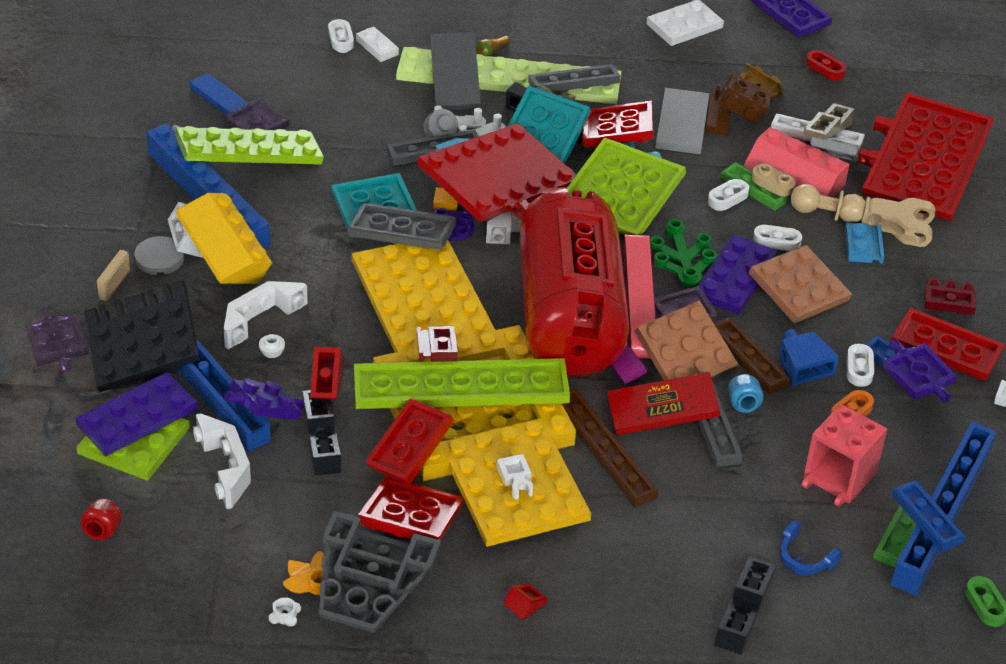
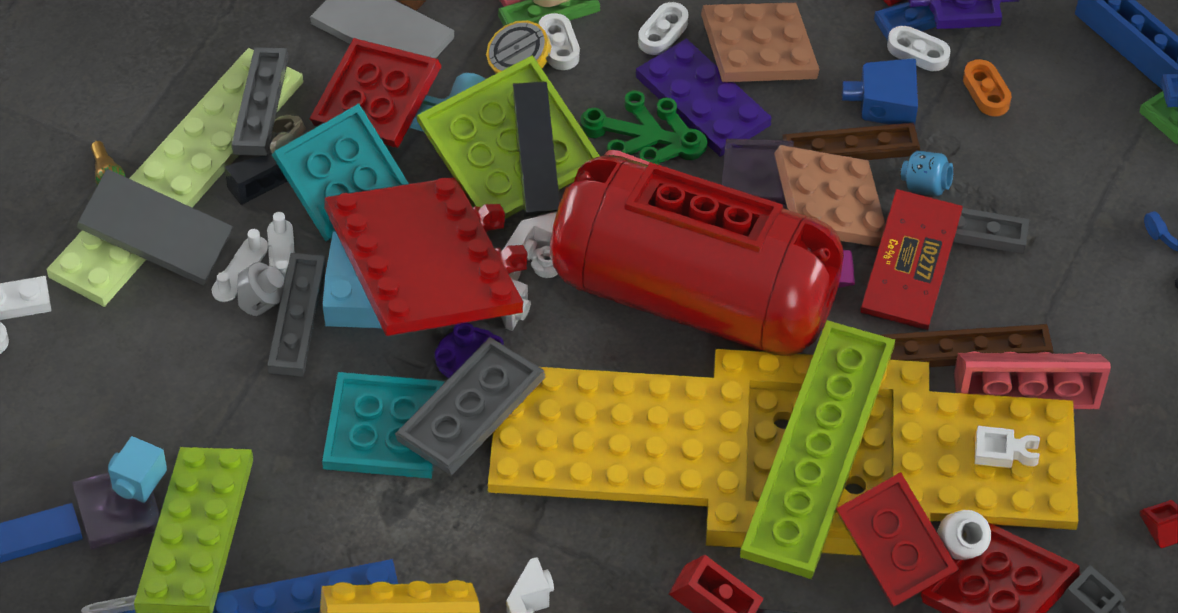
camera: 65 degrees left, 10 degrees up
(275, 111) = (137, 469): none -> medium azure brick
(433, 474) = (975, 534): none -> white head
(437, 343) = (741, 444): plate -> none
(444, 200) = (408, 345): light orange tile -> none
(597, 483) = (1034, 375): none -> coral slope
(630, 185) = (535, 148): none -> black slope
(705, 176) = (516, 43): none -> tile
(844, 454) = (1081, 122): coral container -> none

